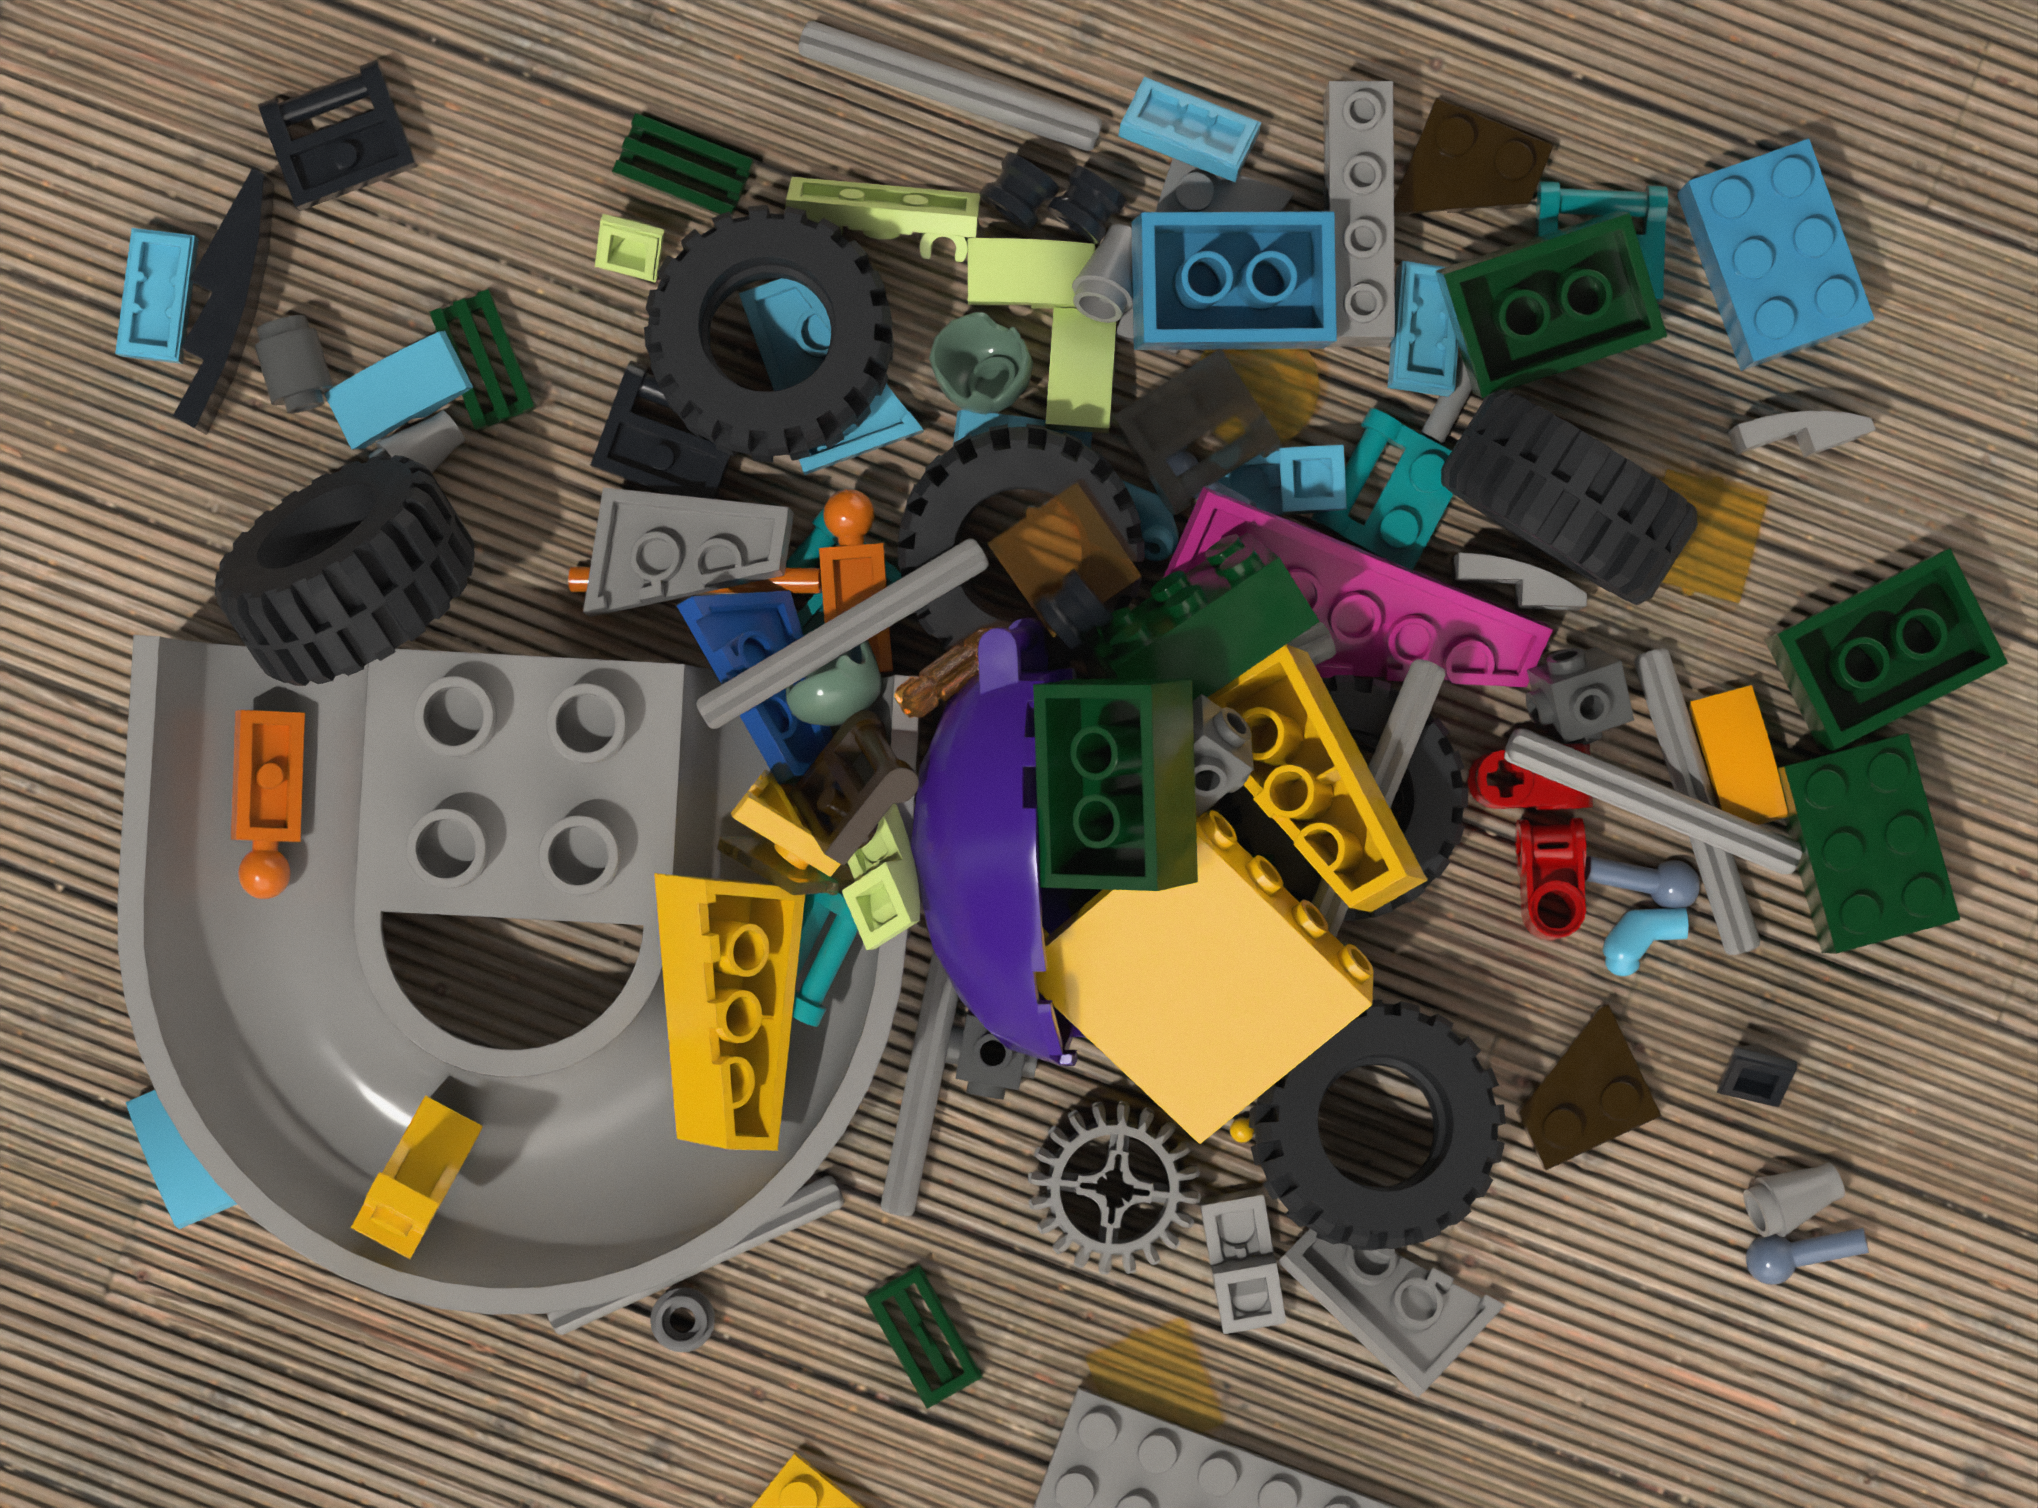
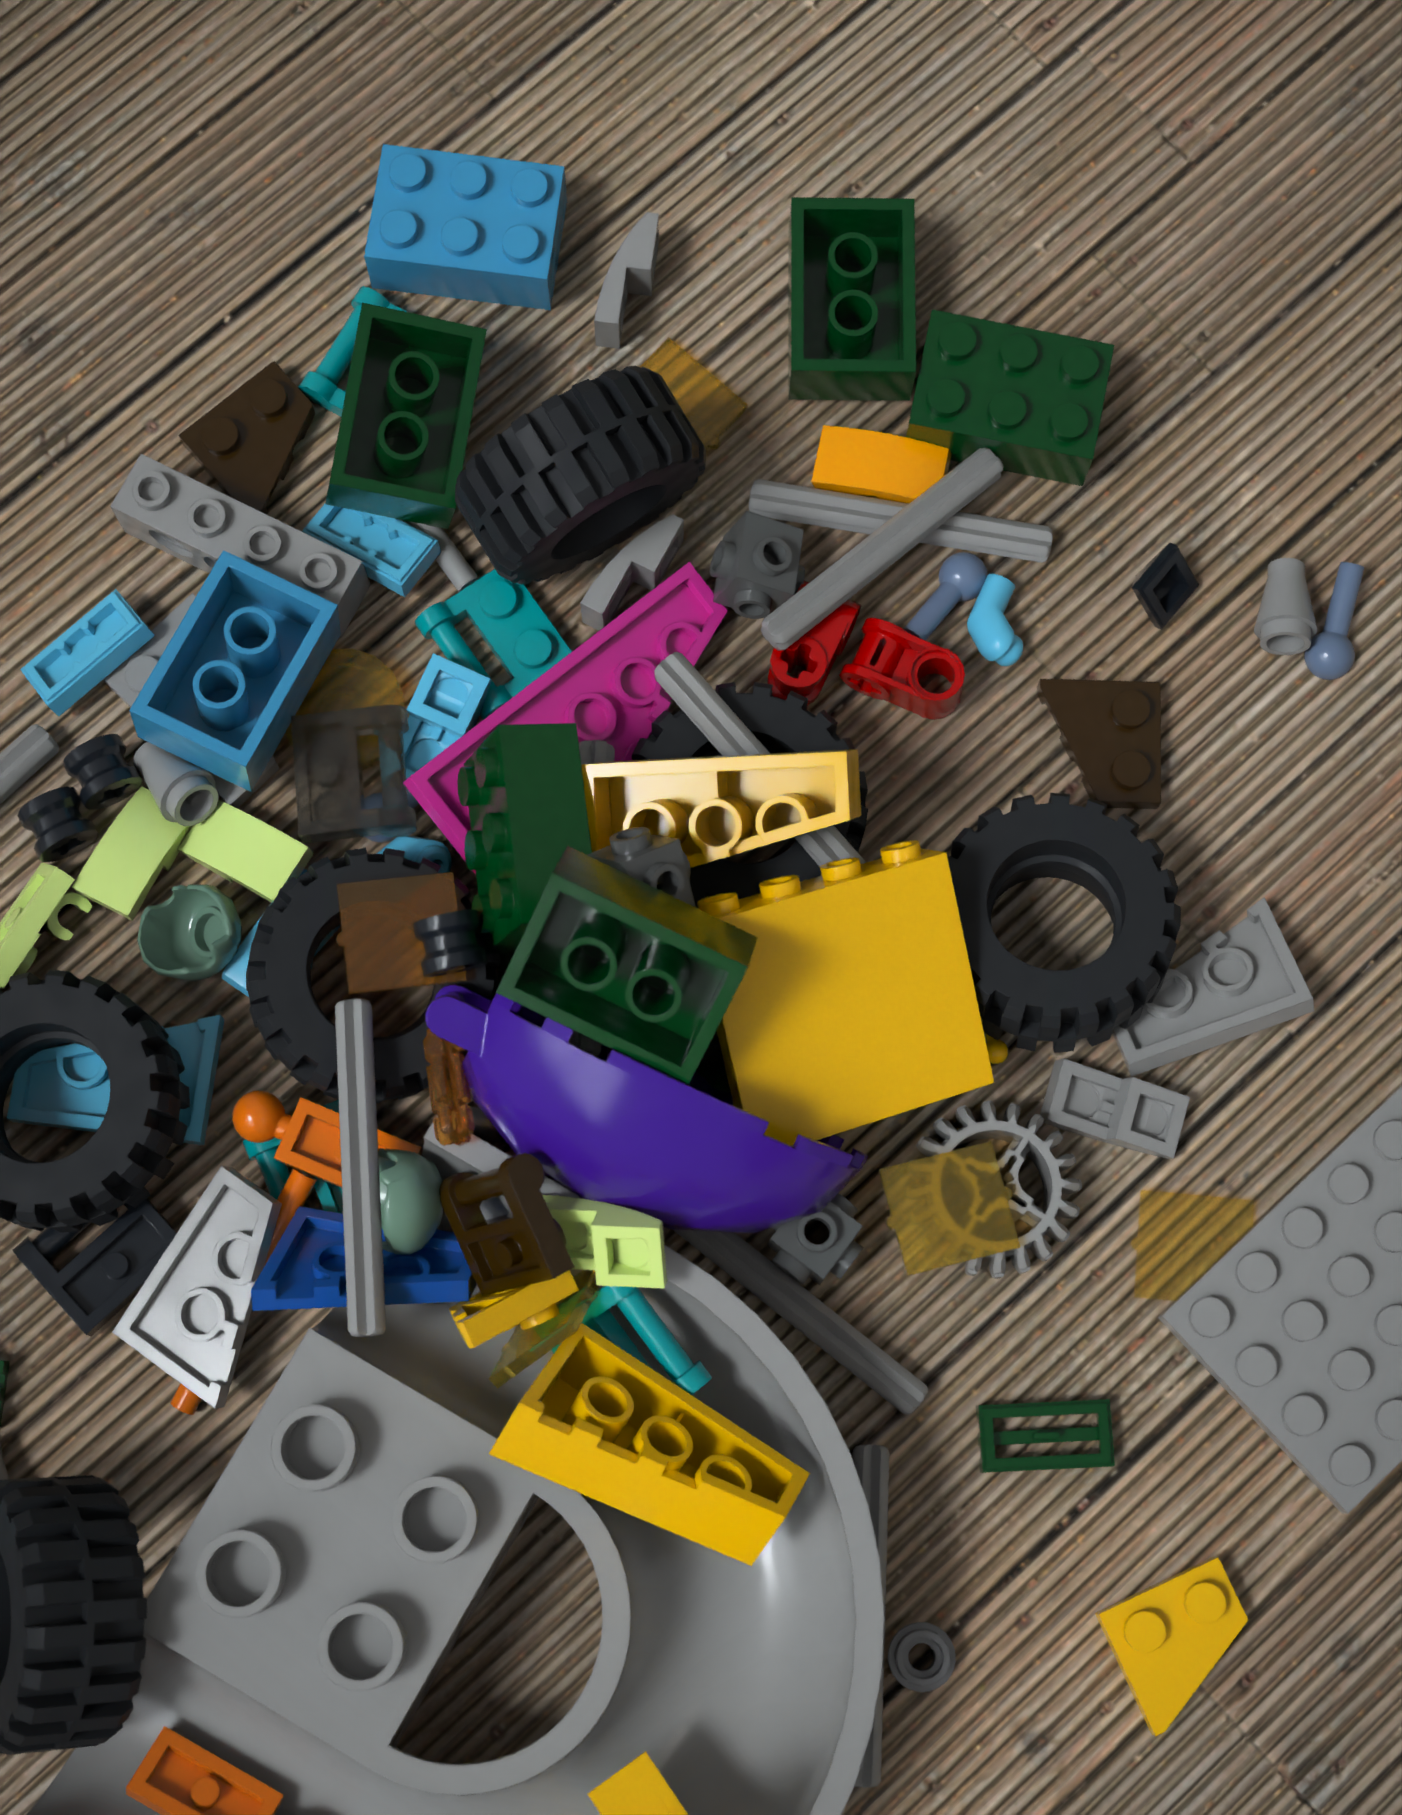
camera: 60 degrees left, 10 degrees down
(1072, 1158) = (949, 1208): none -> clear yellow piece

